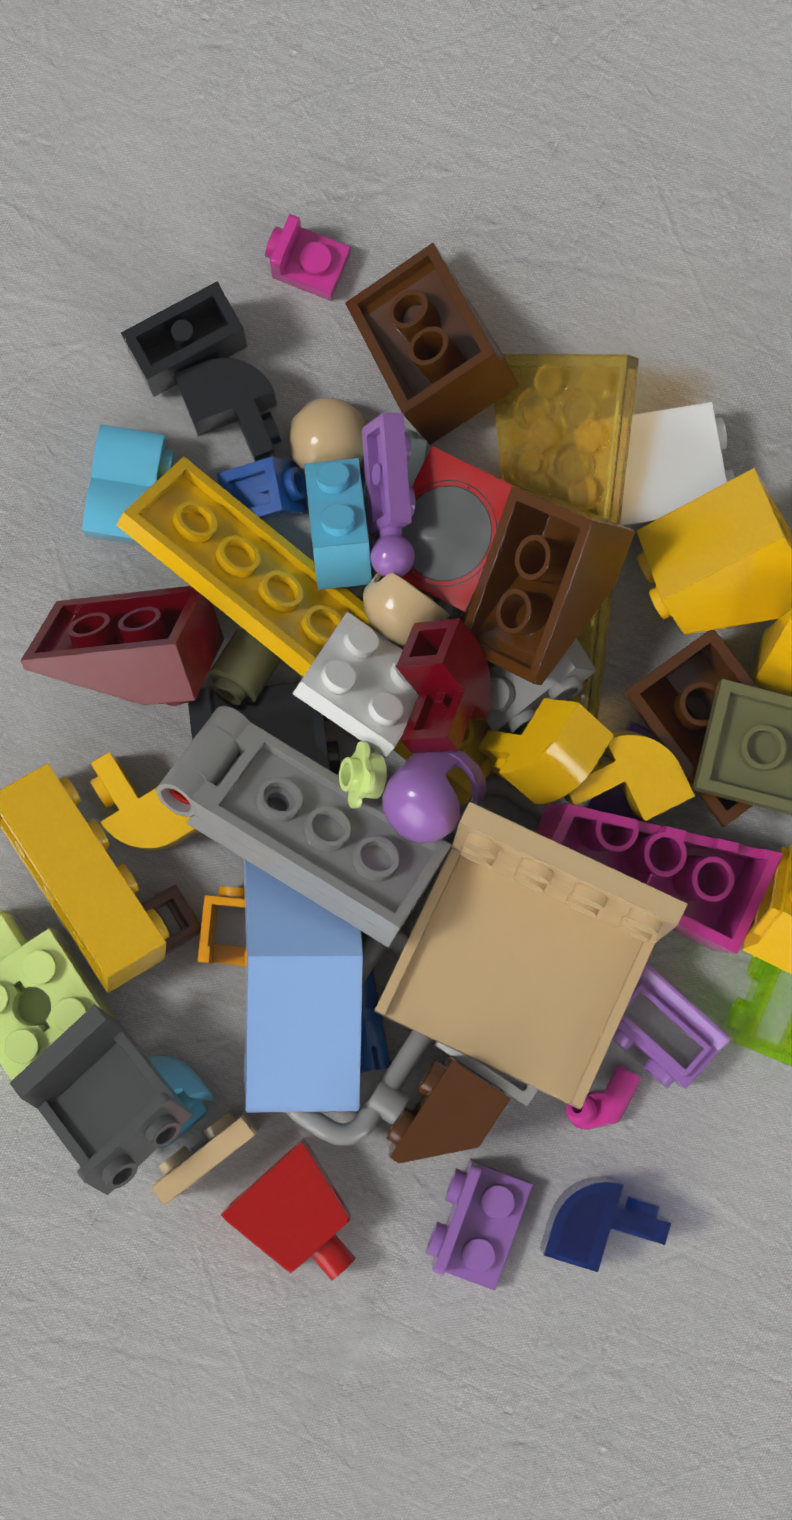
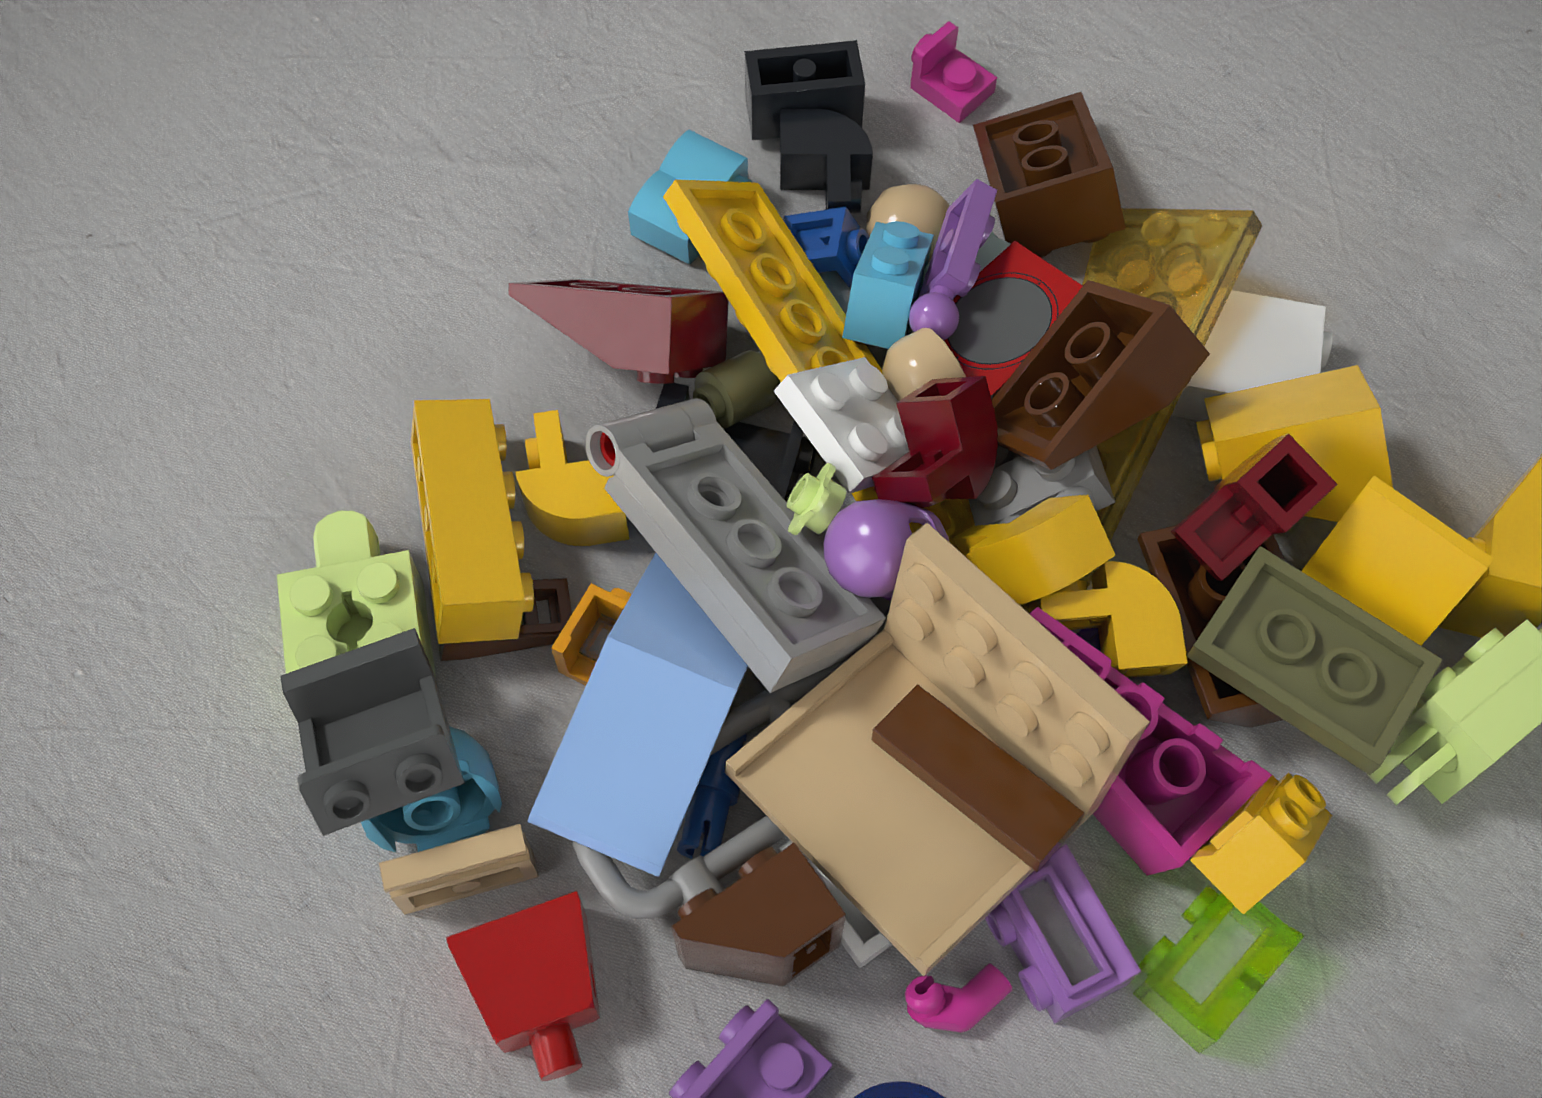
camera: 25 degrees right, 20 degrees down
(565, 946) = (977, 777): none -> reddish brown tile
(708, 644) = (1252, 503): none -> dark red brick

